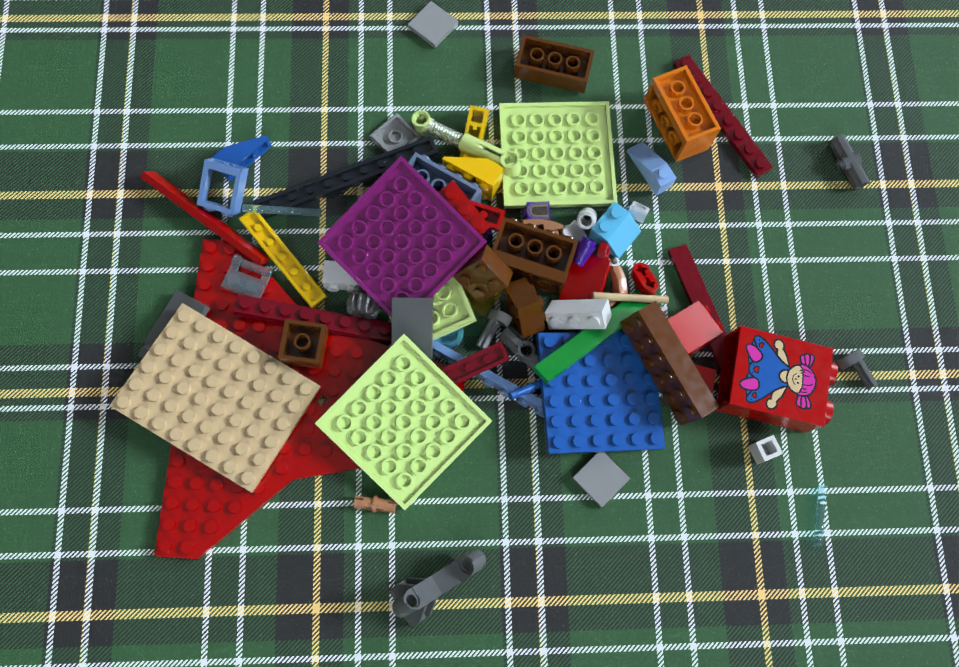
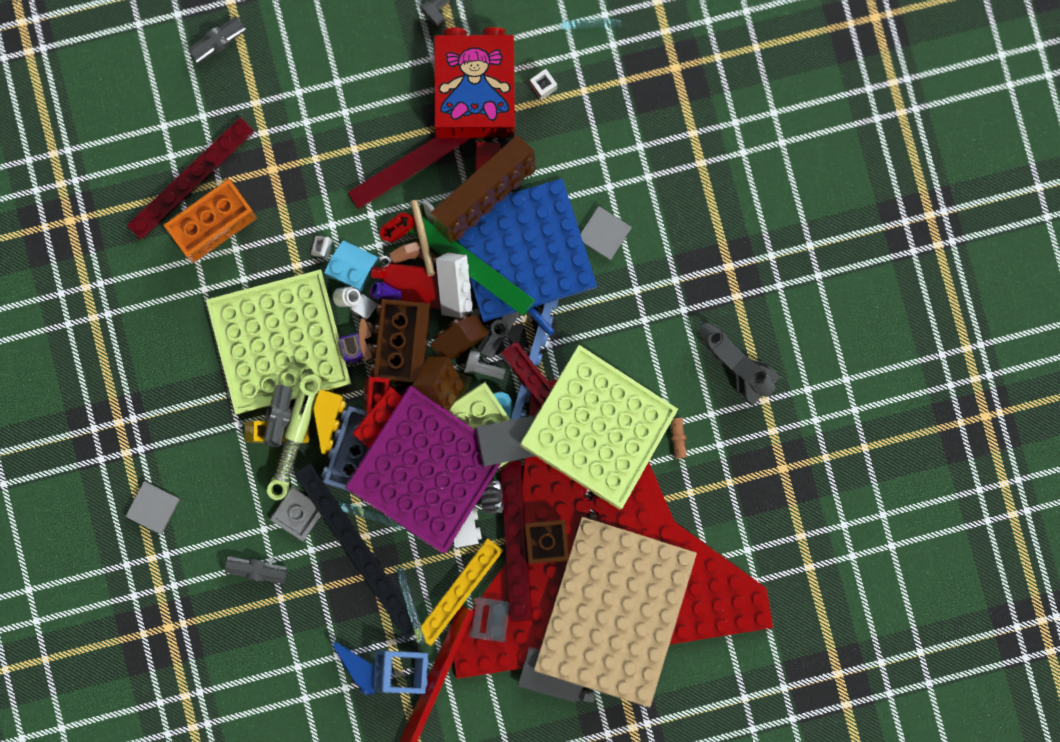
camera: 100 degrees left, 10 degrees up
(354, 91) = (256, 570): none -> dark grey piece
(488, 130) = (277, 416): none -> dark grey piece
(553, 63) = (176, 366): reddish brown brick -> none
(652, 167) = (270, 242): light blue slope -> none
(695, 327) = (441, 171): slope -> none

